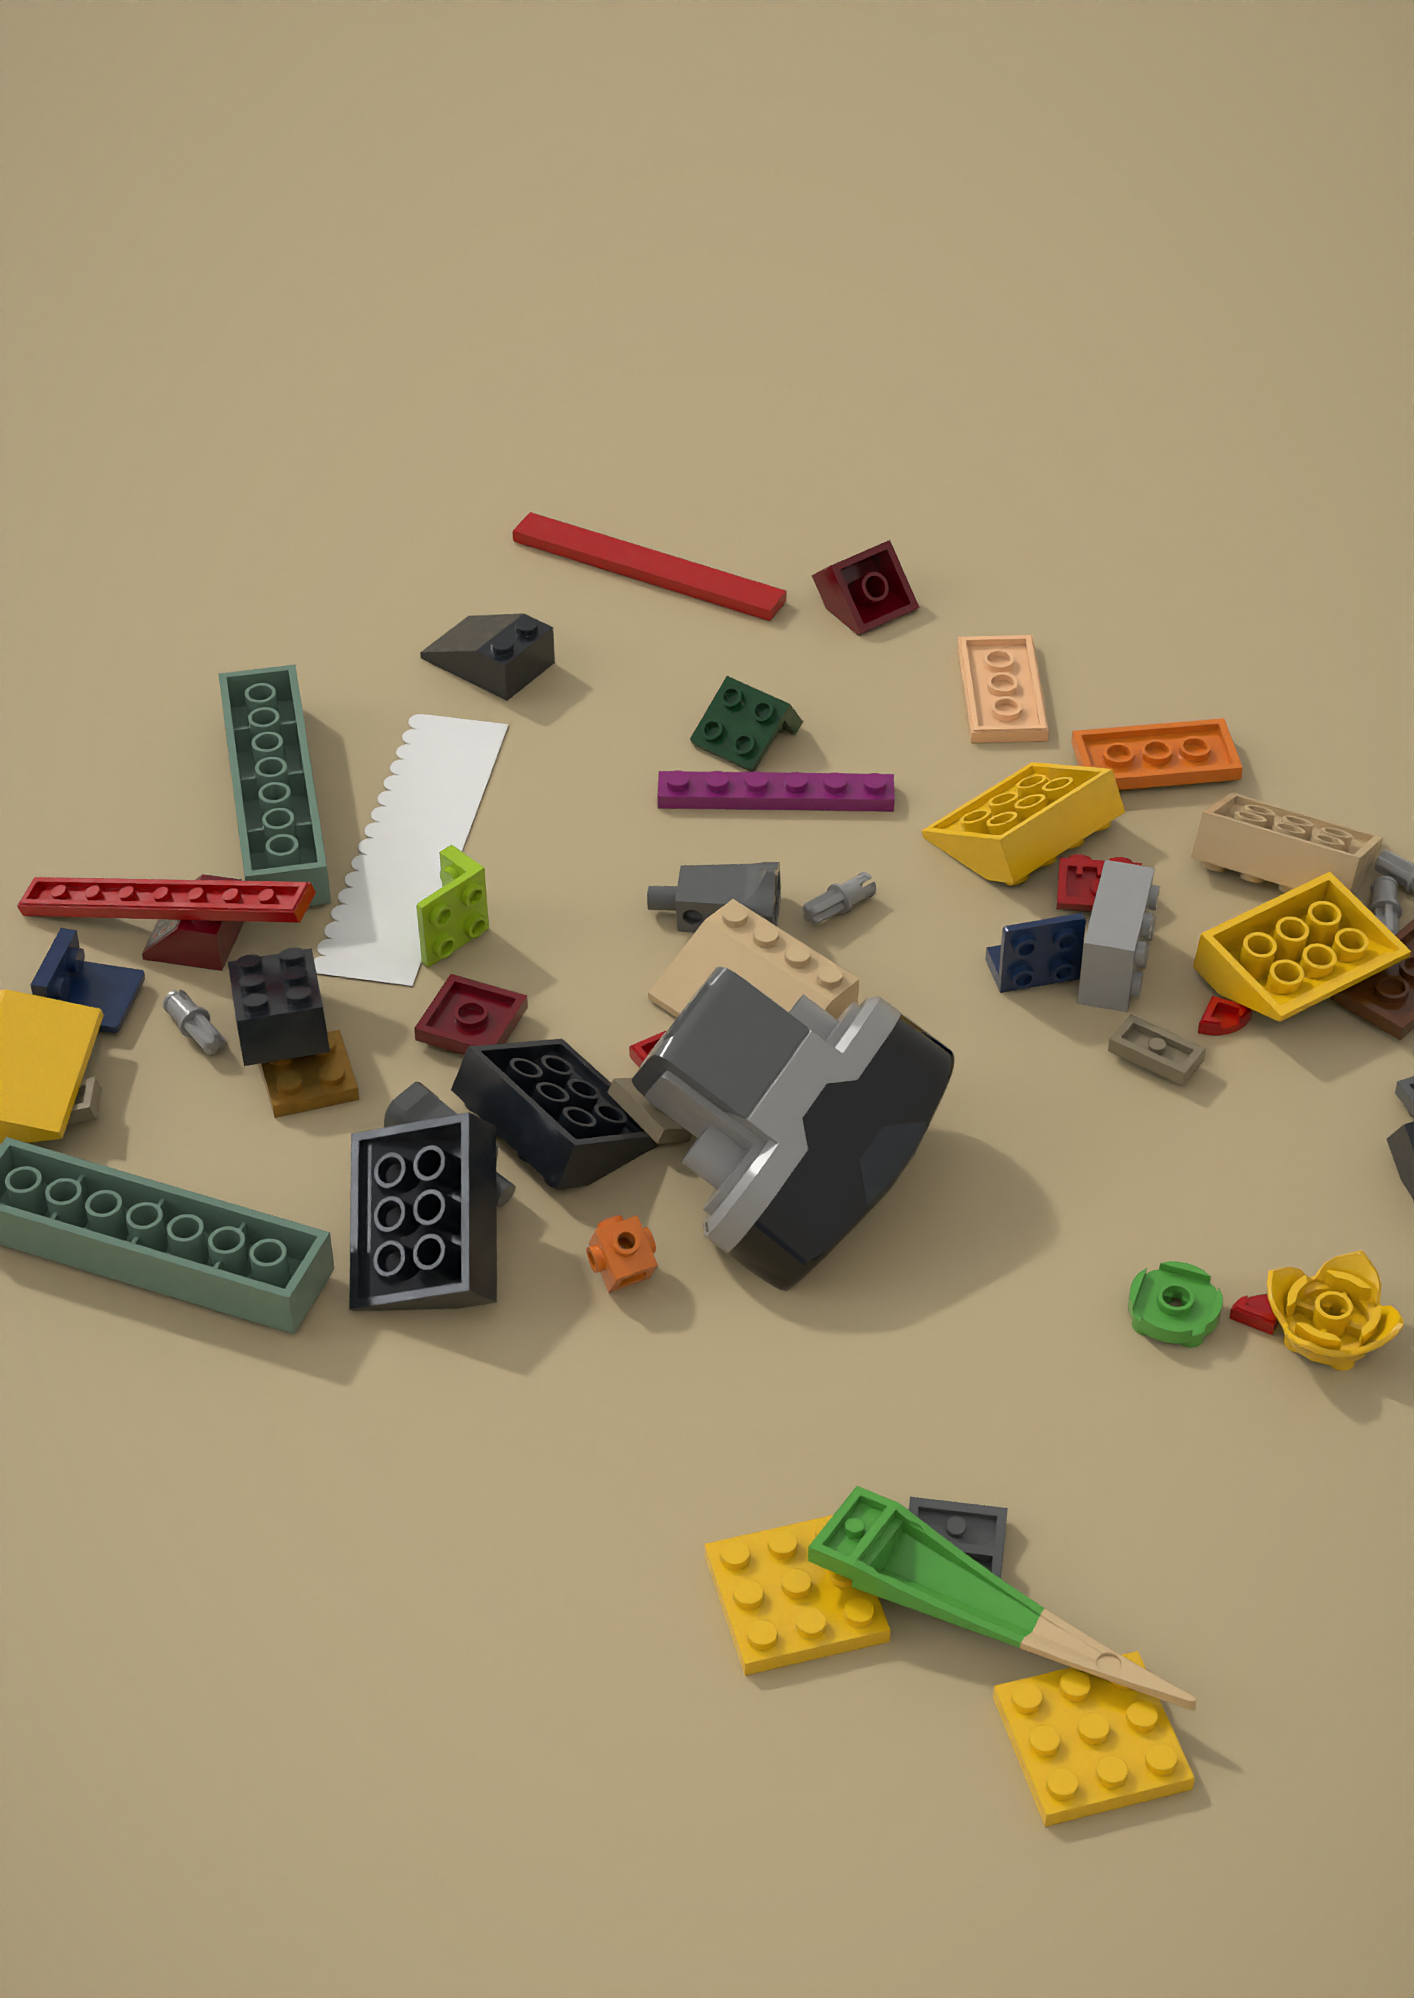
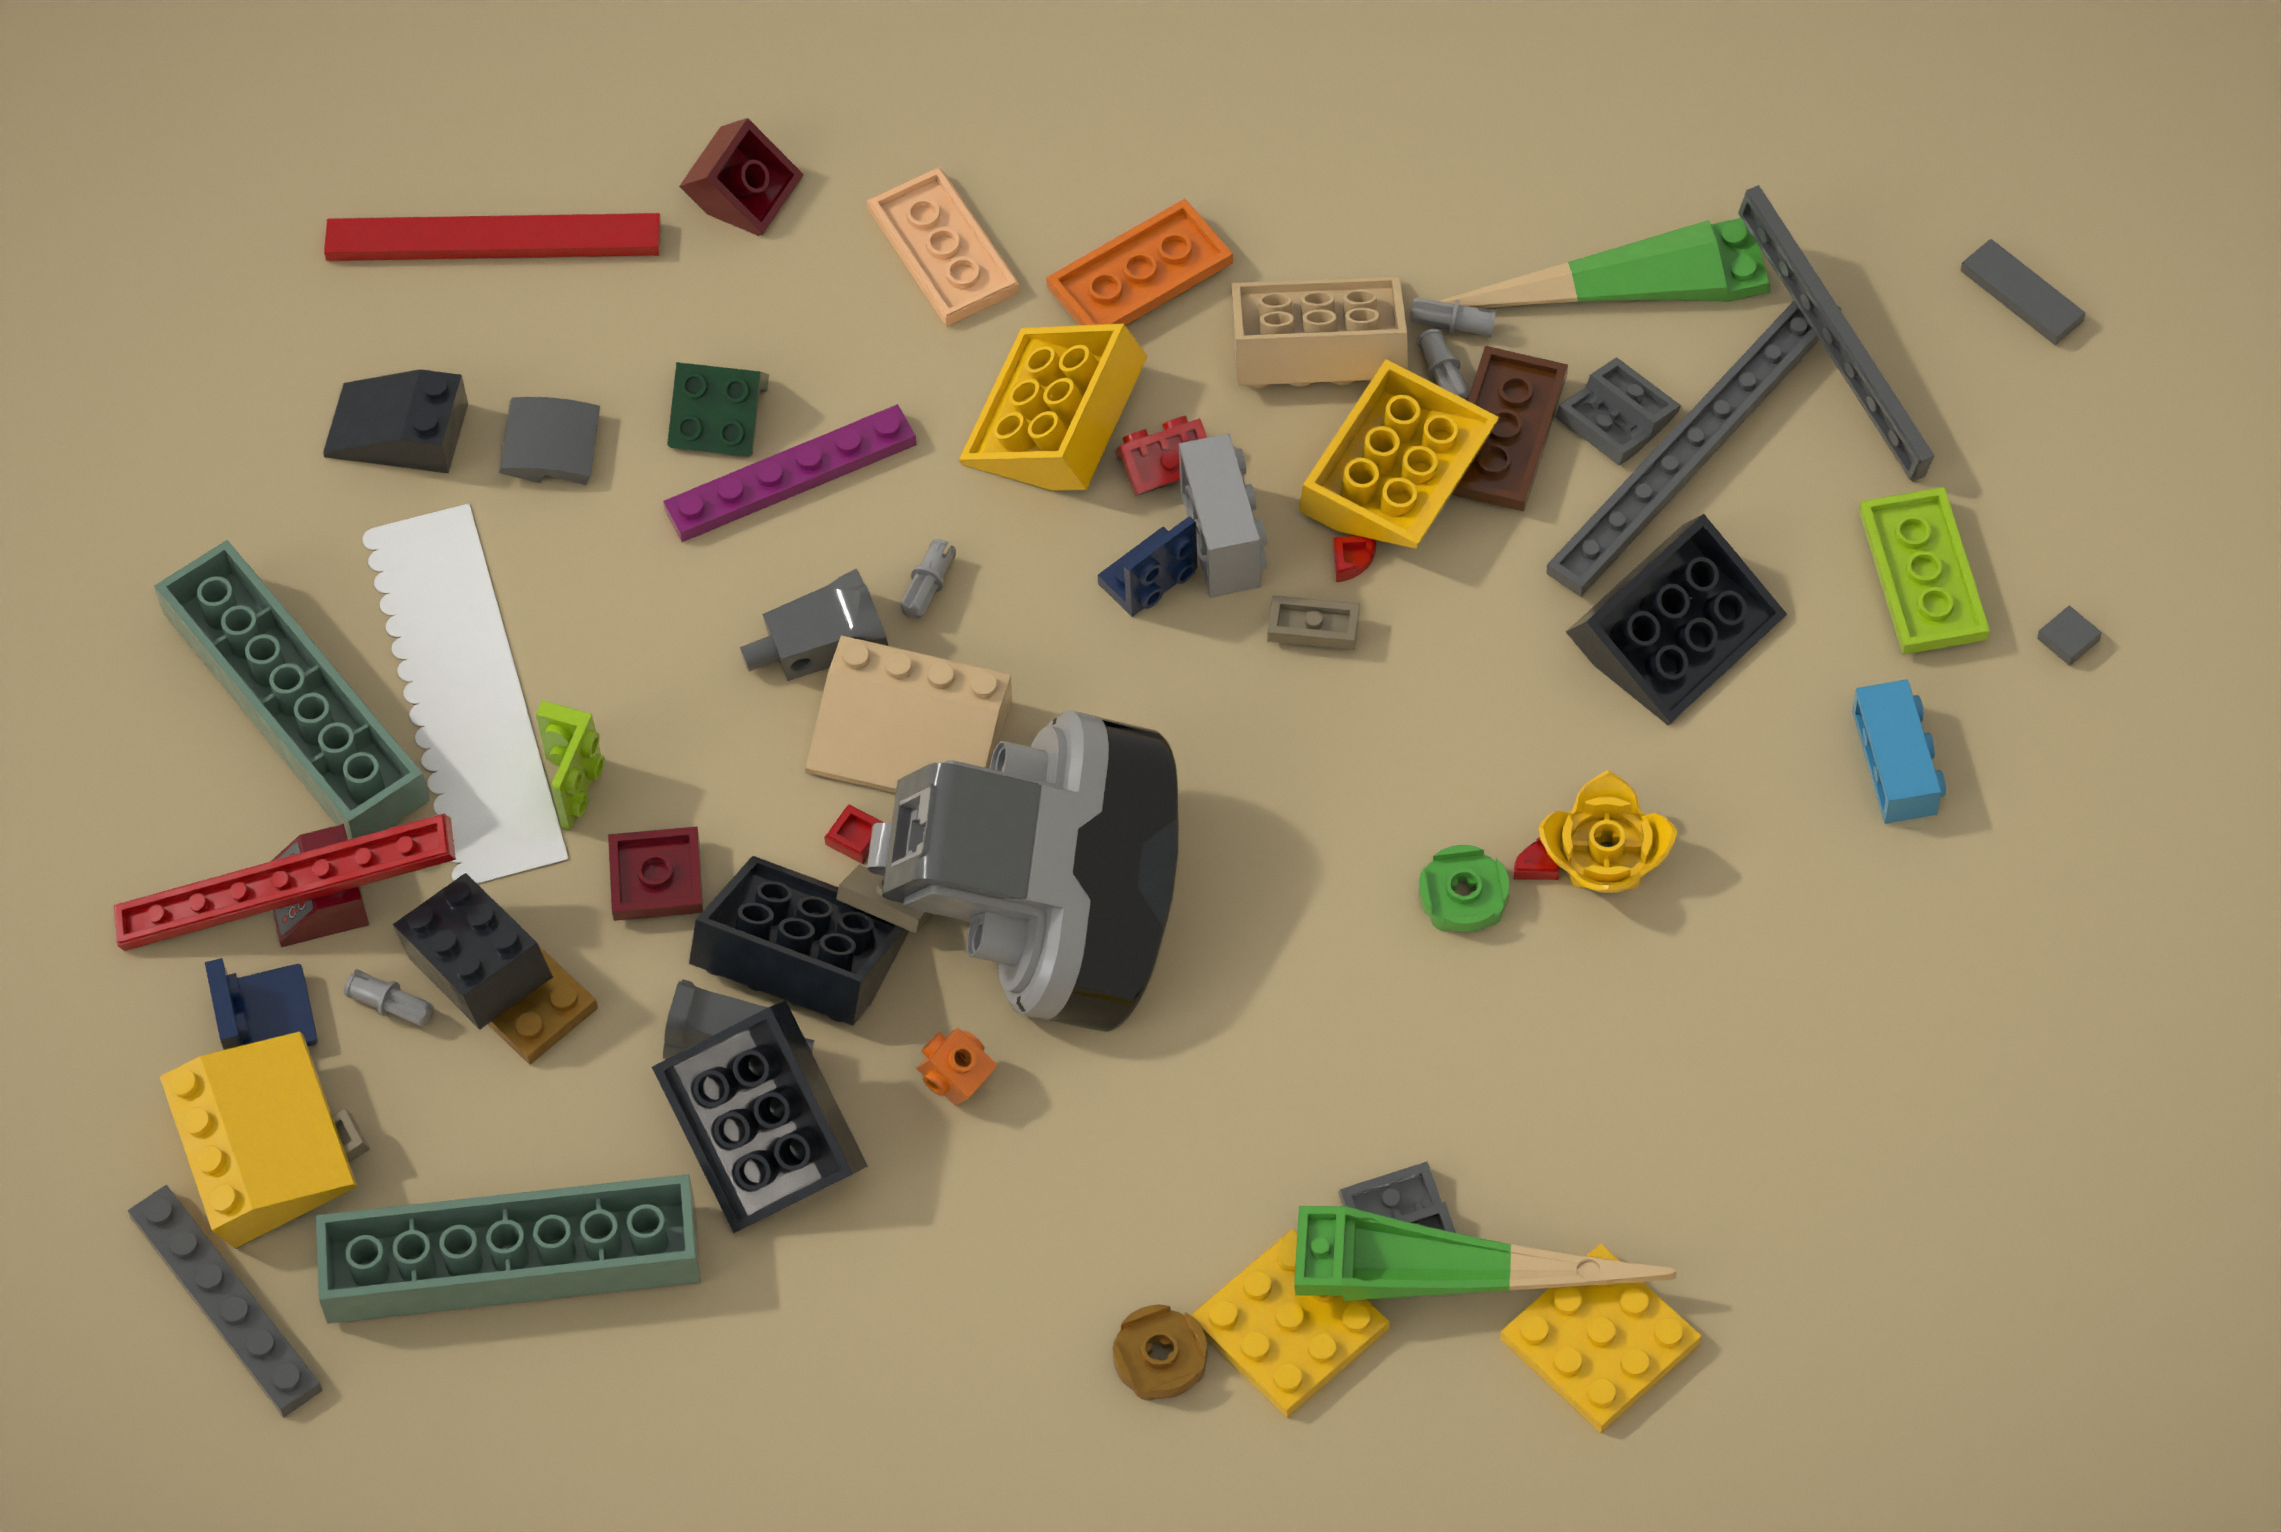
camera: 25 degrees left, 15 degrees up
(598, 701) = (549, 439): none -> dark grey slope
(664, 1586) = (1156, 1377): none -> pearl gold plate

